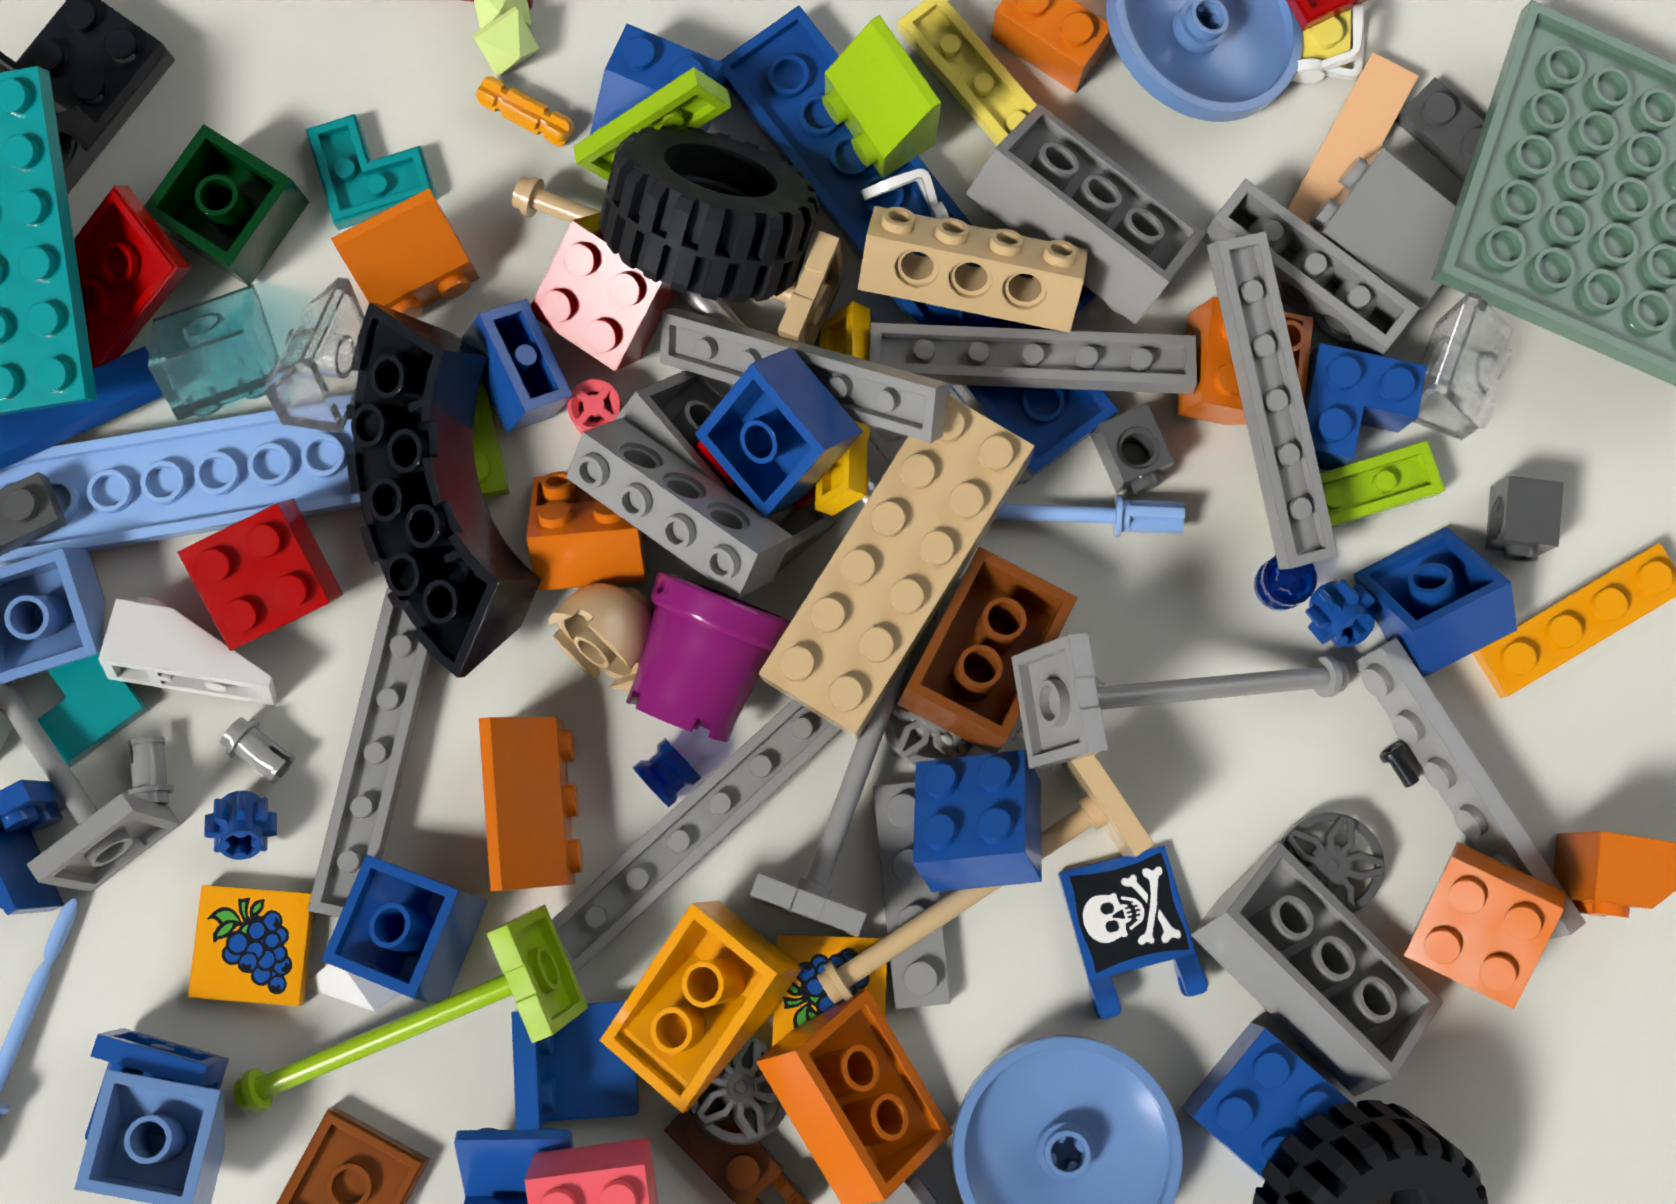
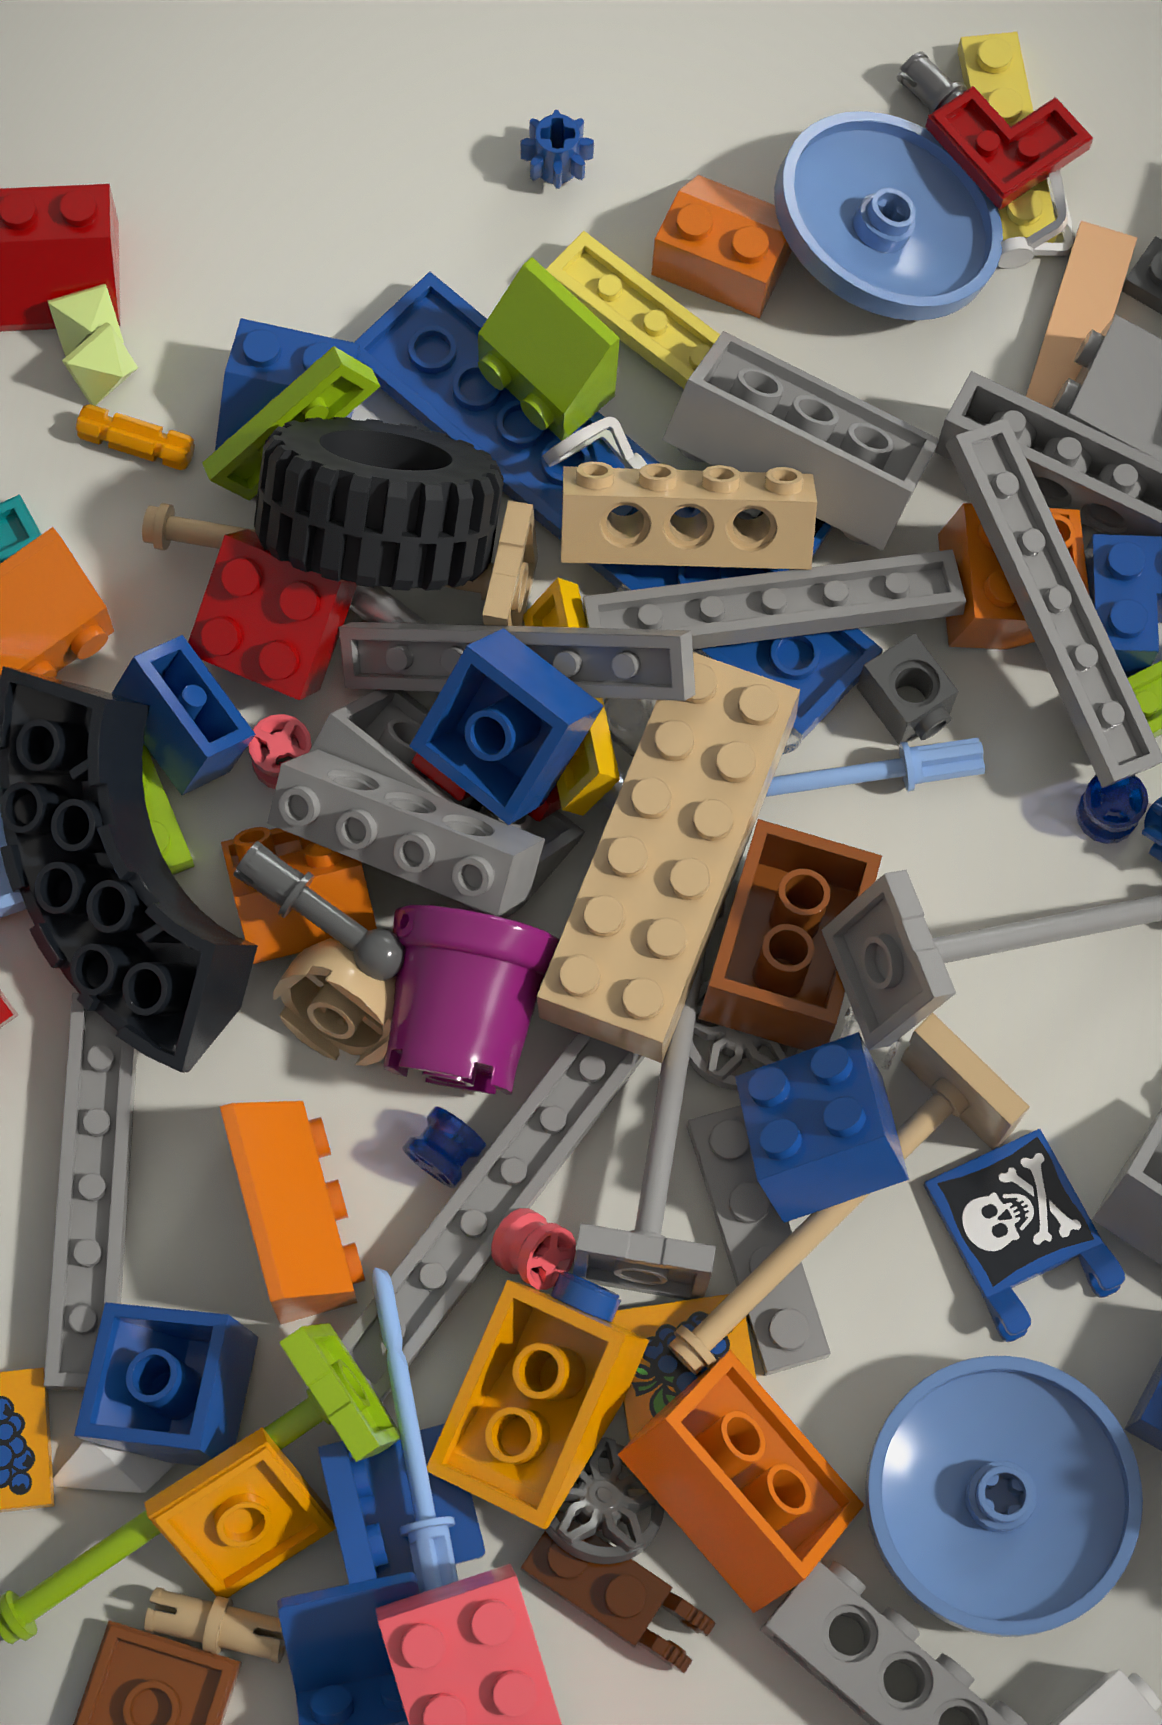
camera: 15 degrees left, 10 degrees down
(409, 1127) = (215, 1624): none -> tan pin
(441, 1050) = (240, 1514): none -> light orange tile
(592, 1096) = (429, 1535): none -> light blue piece
(634, 605) = (375, 951): none -> dark grey pin
(722, 872) = (533, 1248): none -> coral wheel
(758, 921) = (586, 1296): none -> blue tile

